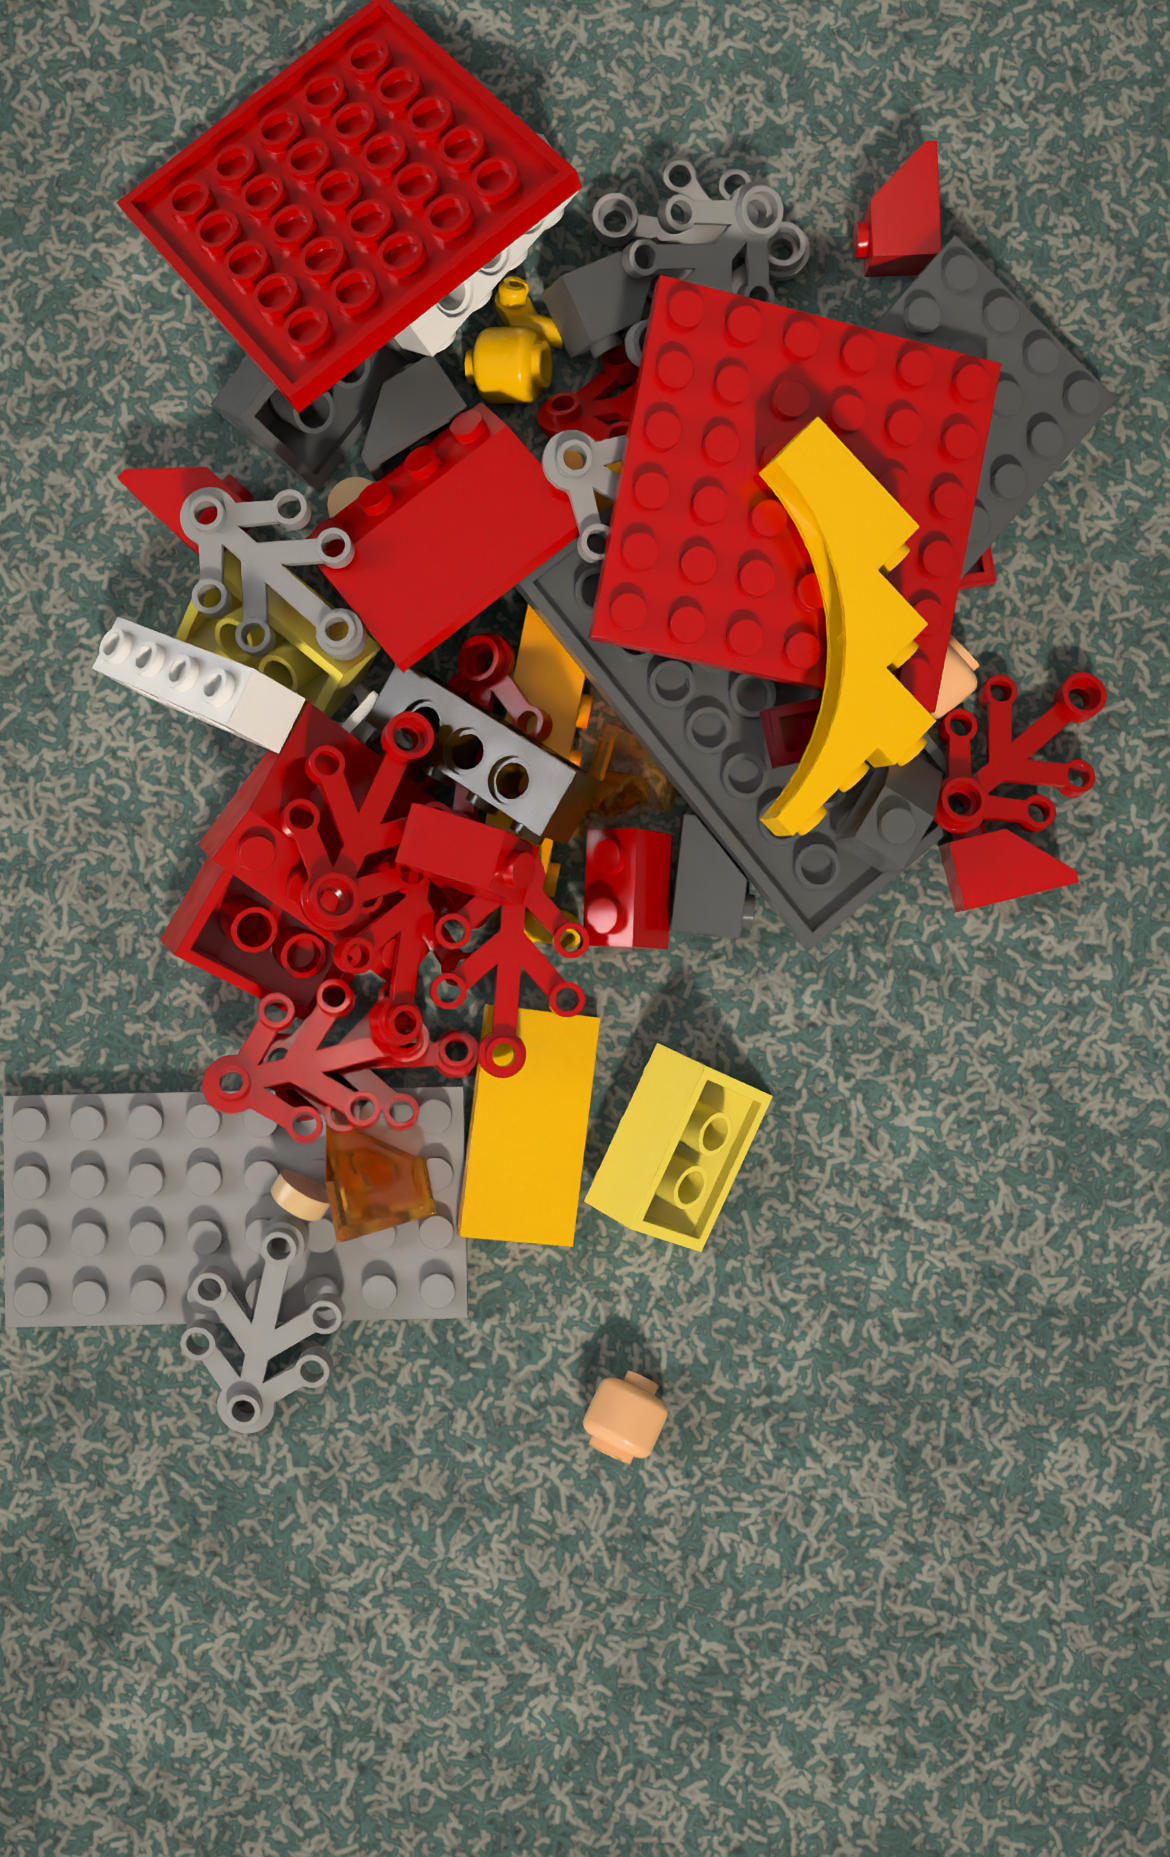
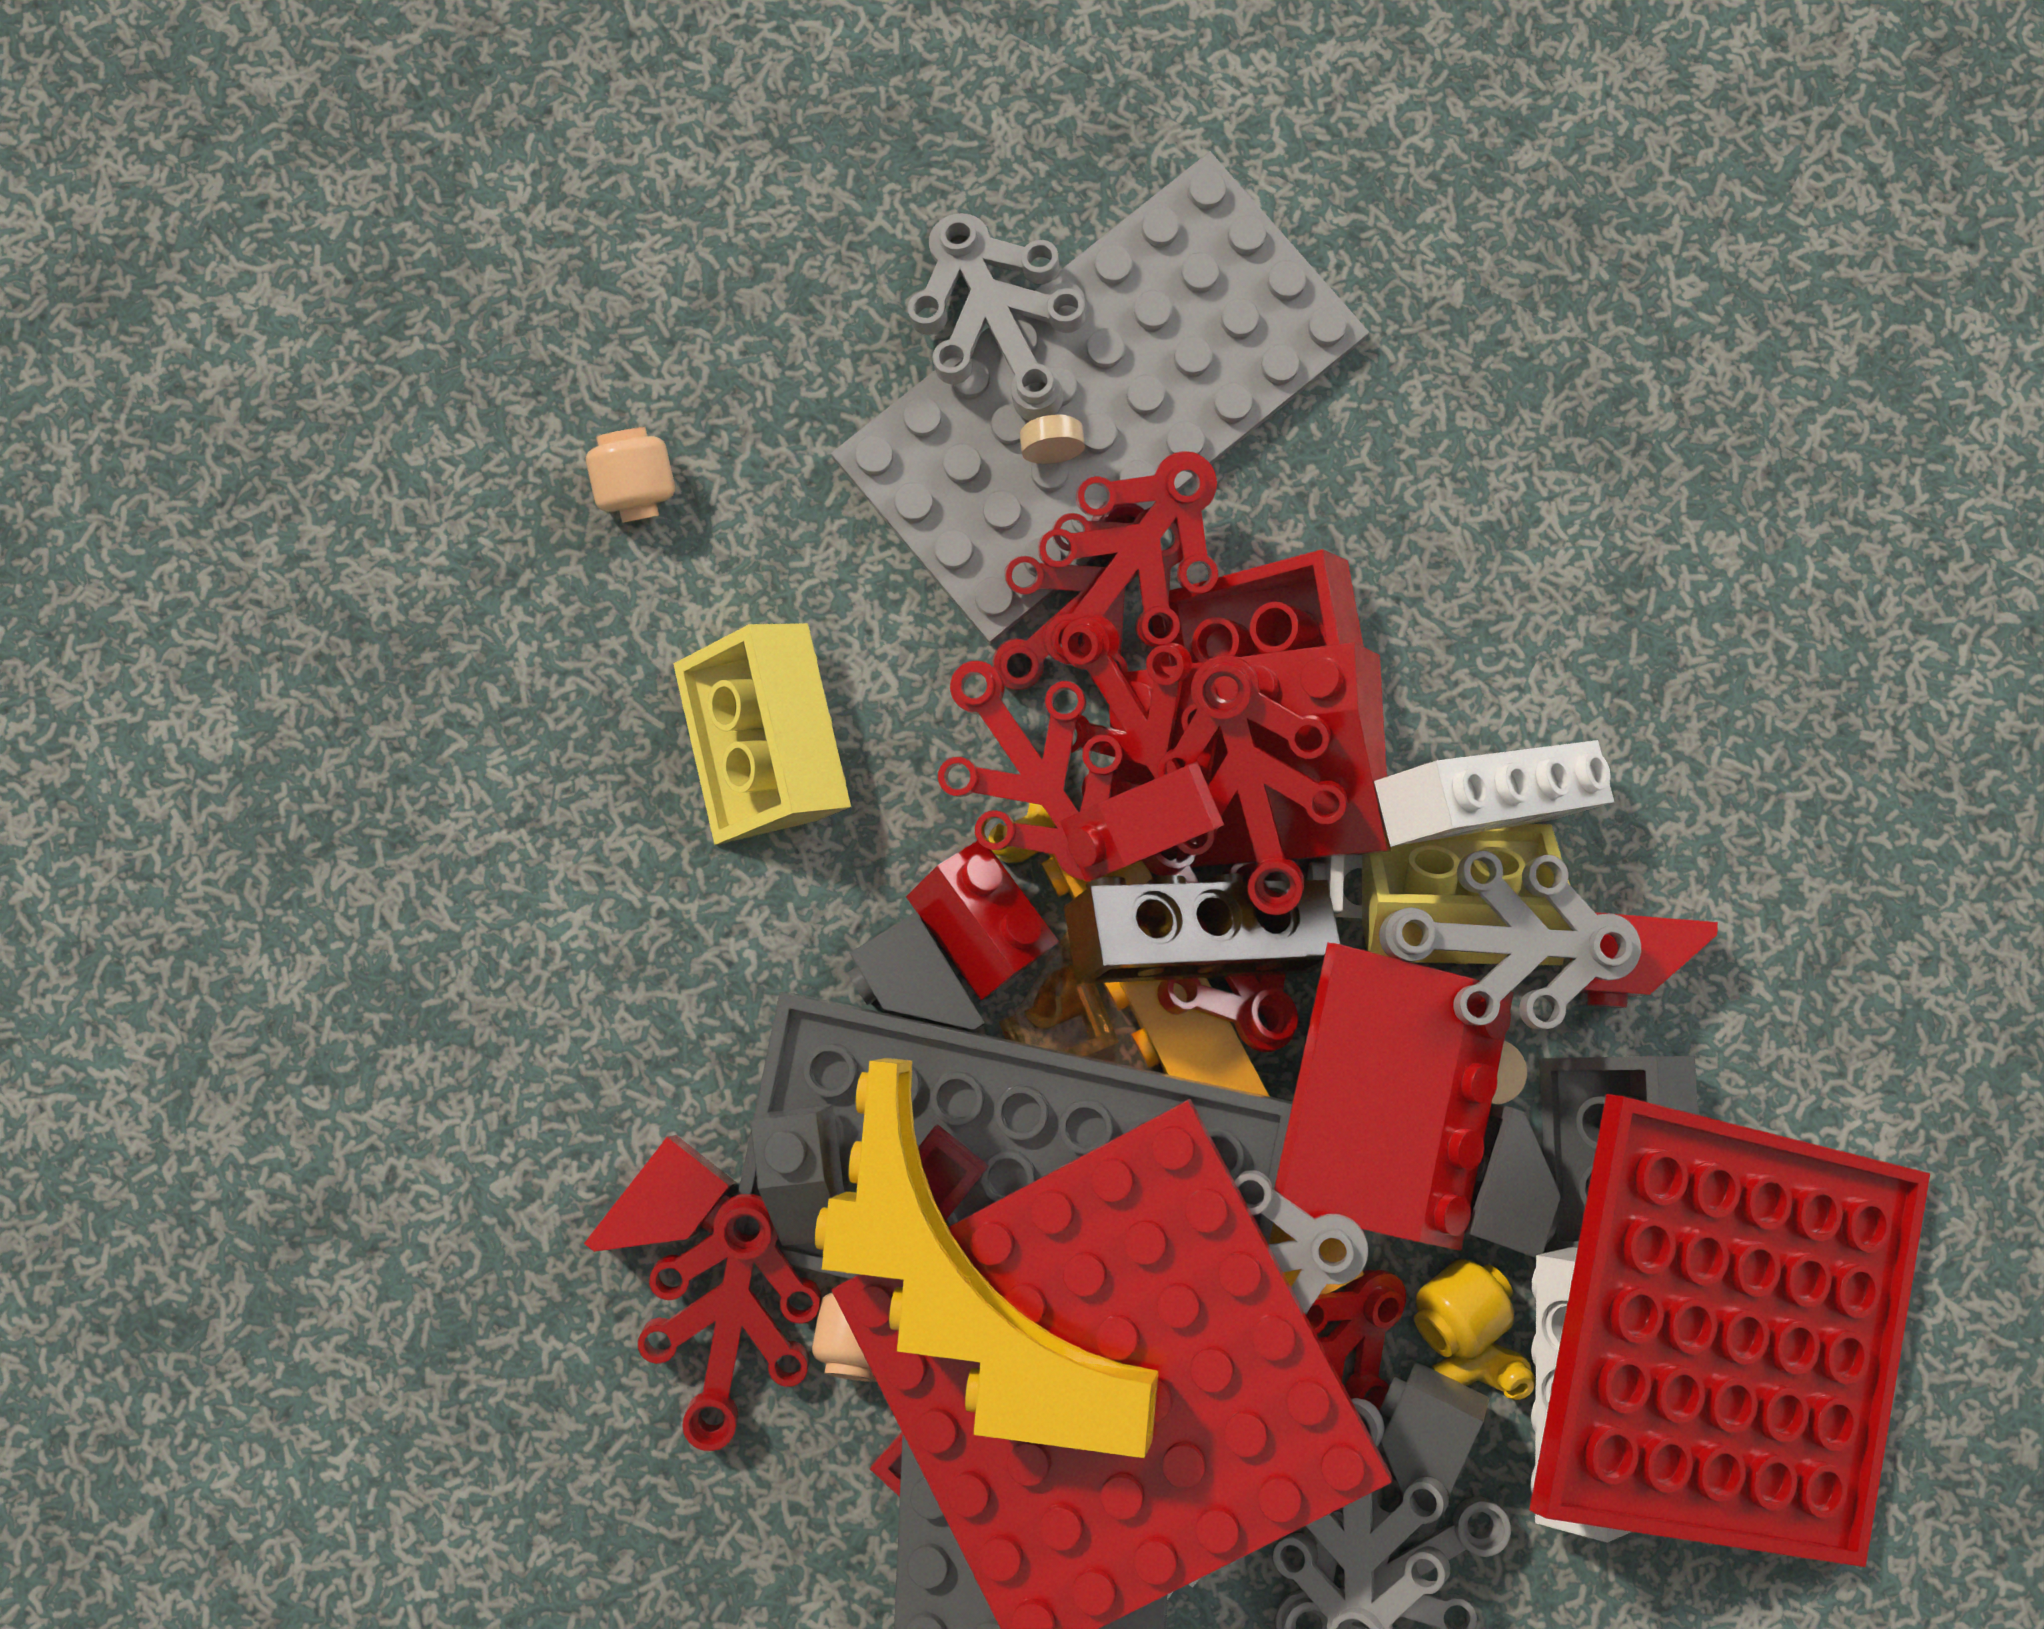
camera: 140 degrees right, 5 degrees down
(373, 1185) = (998, 494): clear orange slope -> none
(530, 1133) = (899, 647): yellow tile -> none

